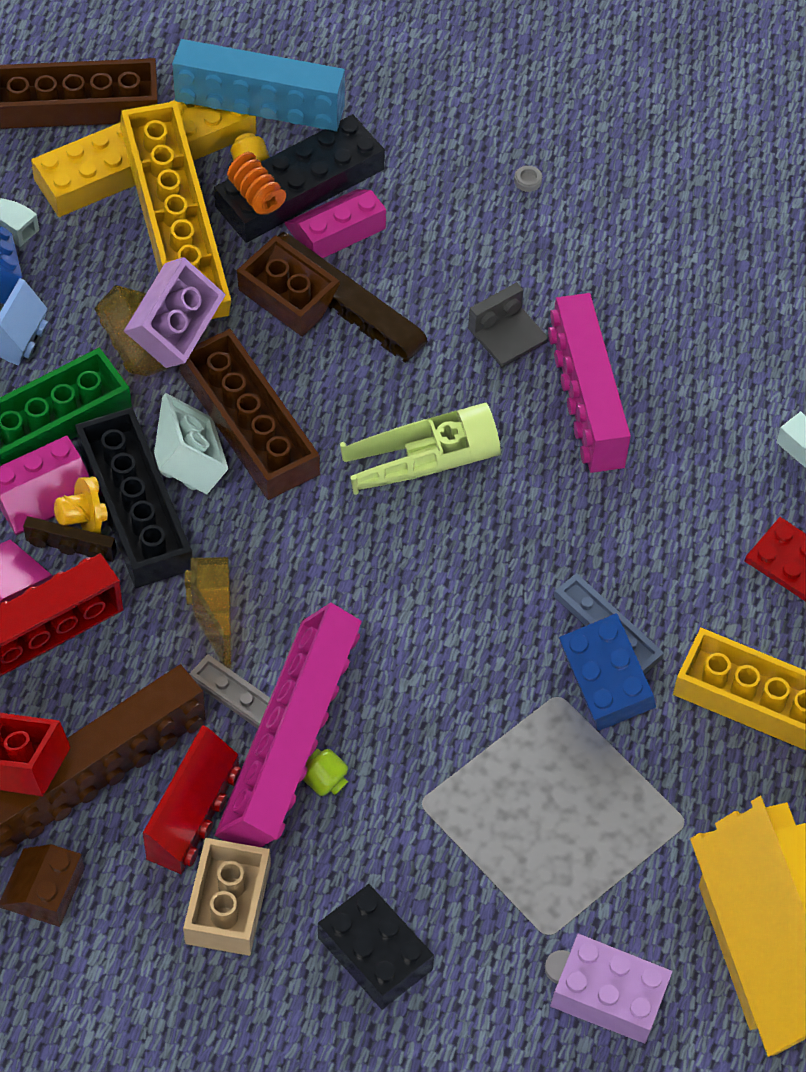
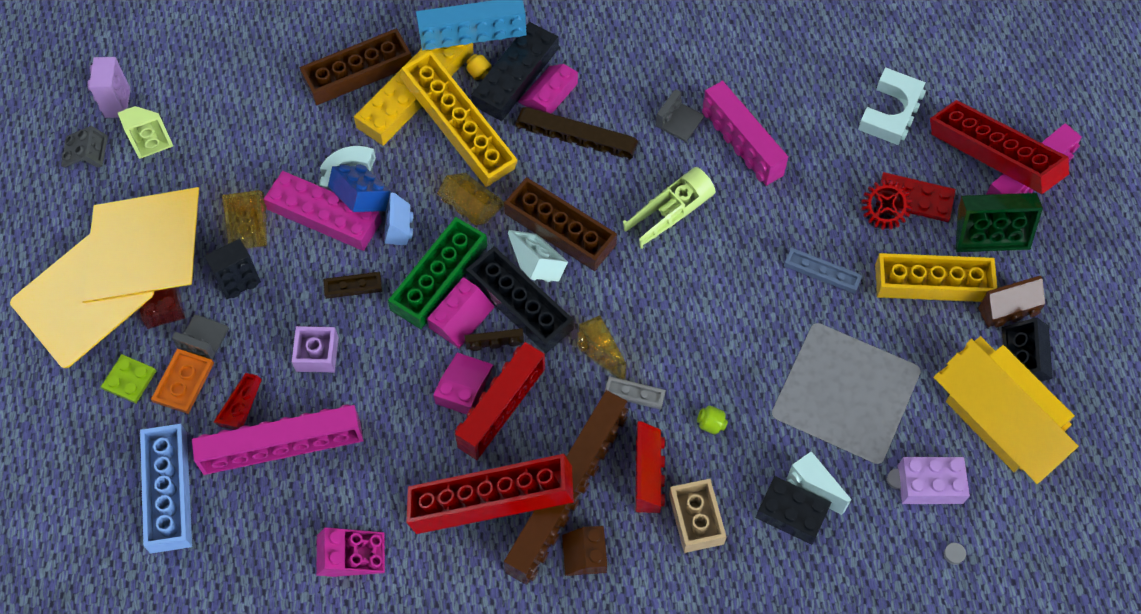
camera: 20 degrees left, 5 degrees up
(82, 507) = (494, 316): yellow plate -> none
(174, 312) = (494, 179): lavender brick -> none
(256, 184) = (498, 85): orange piece -> none
(287, 285) = (543, 138): reddish brown slope -> none
(289, 728) = (682, 403): dark pink brick -> none
(422, 907) = (812, 476): none -> light aqua slope
(528, 178) = (643, 24): light grey tile -> none
(607, 672) = (839, 298): blue brick -> none
(765, 559) = (893, 210): none -> red gear

